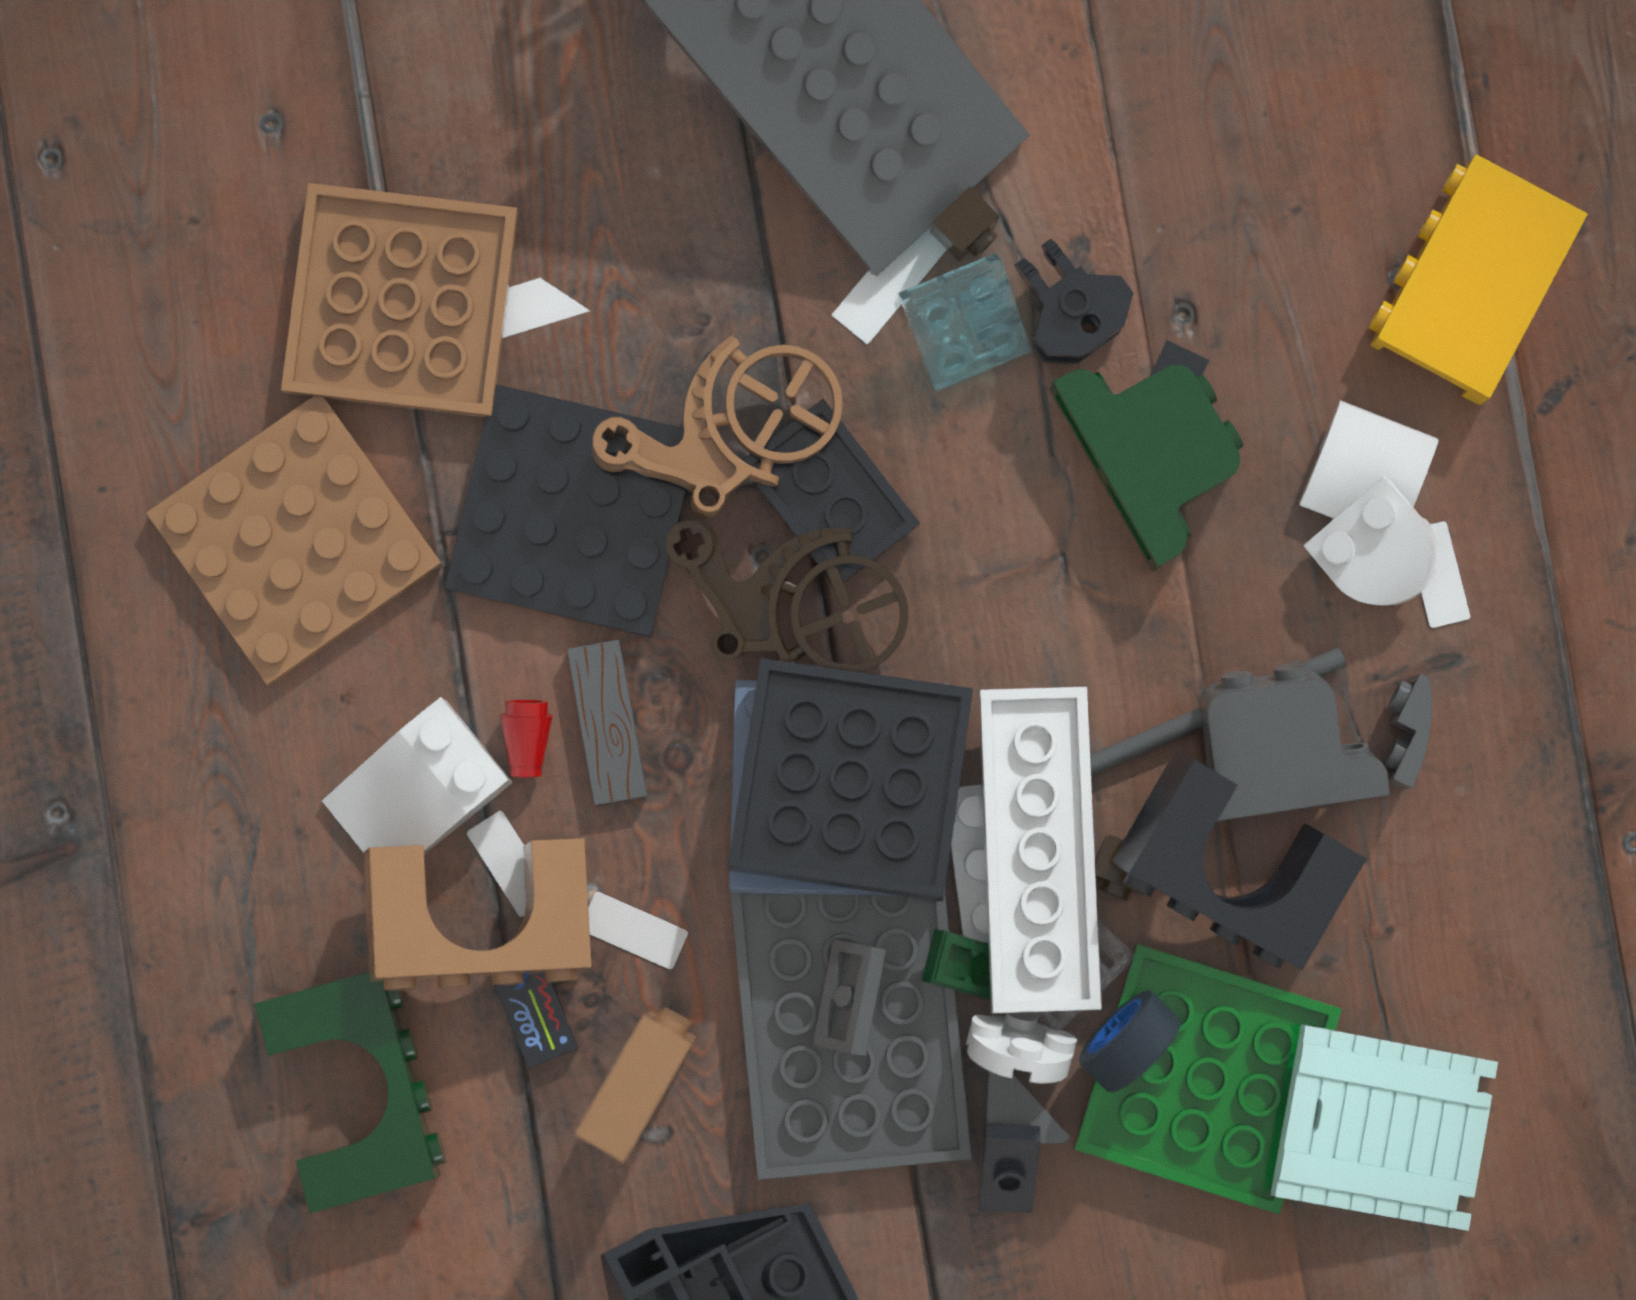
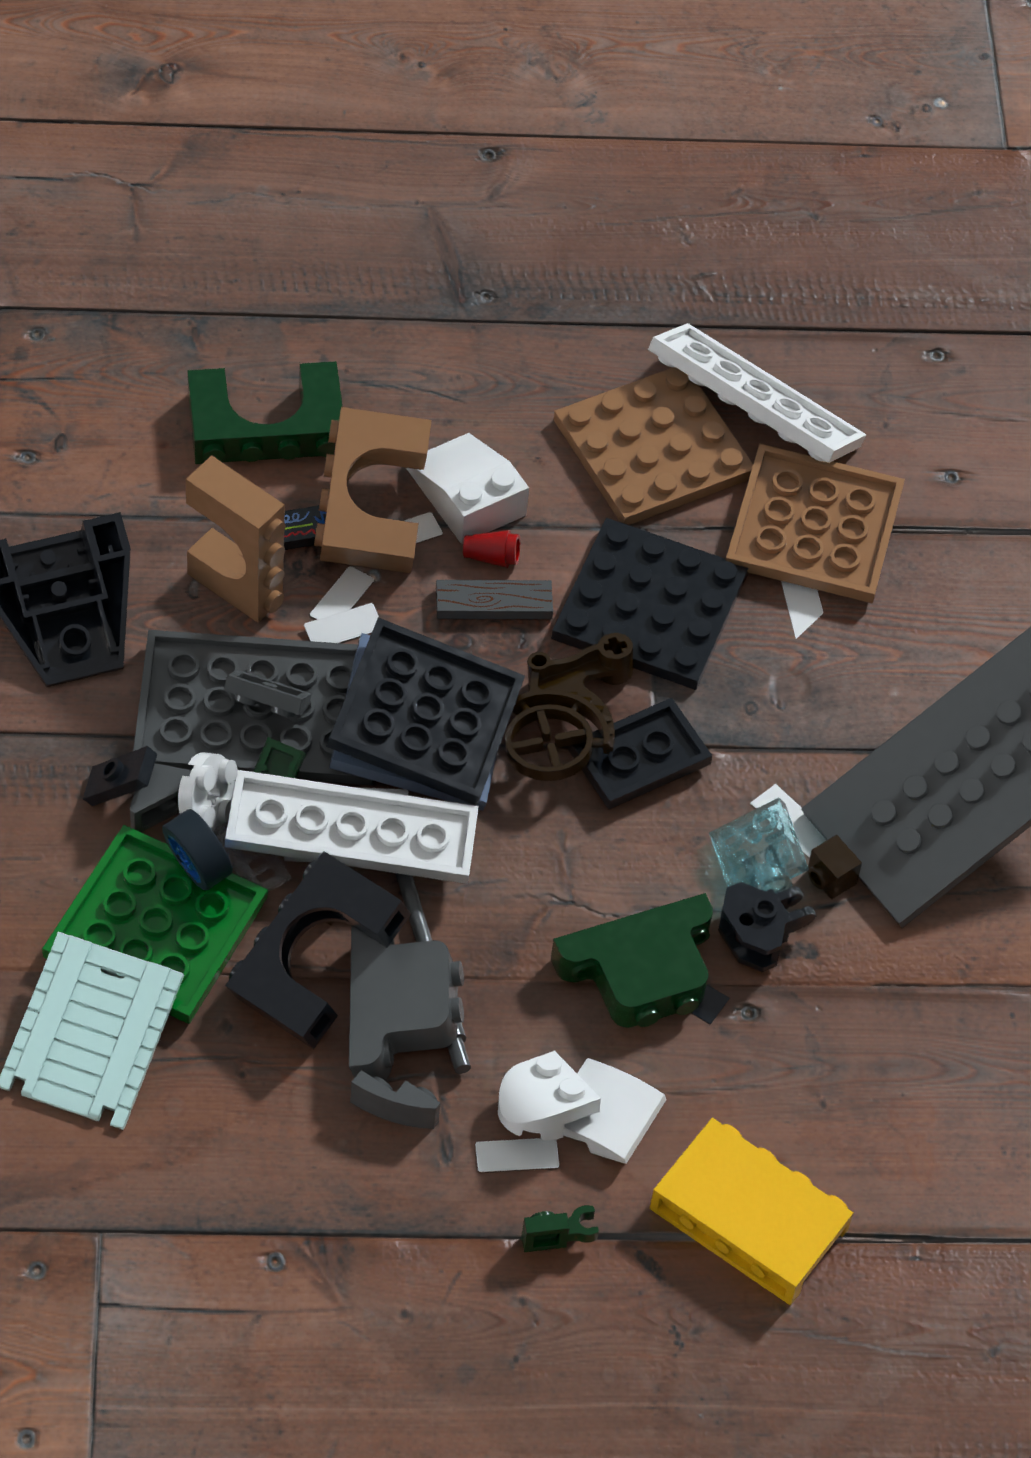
camera: 100 degrees right, 30 degrees down
(192, 402) = (757, 393): none -> white plate
(685, 919) = (343, 625): none -> white sticker
(702, 458) = (674, 667): medium nougat piece -> none
(1550, 518) = (553, 1231): none -> dark green plate

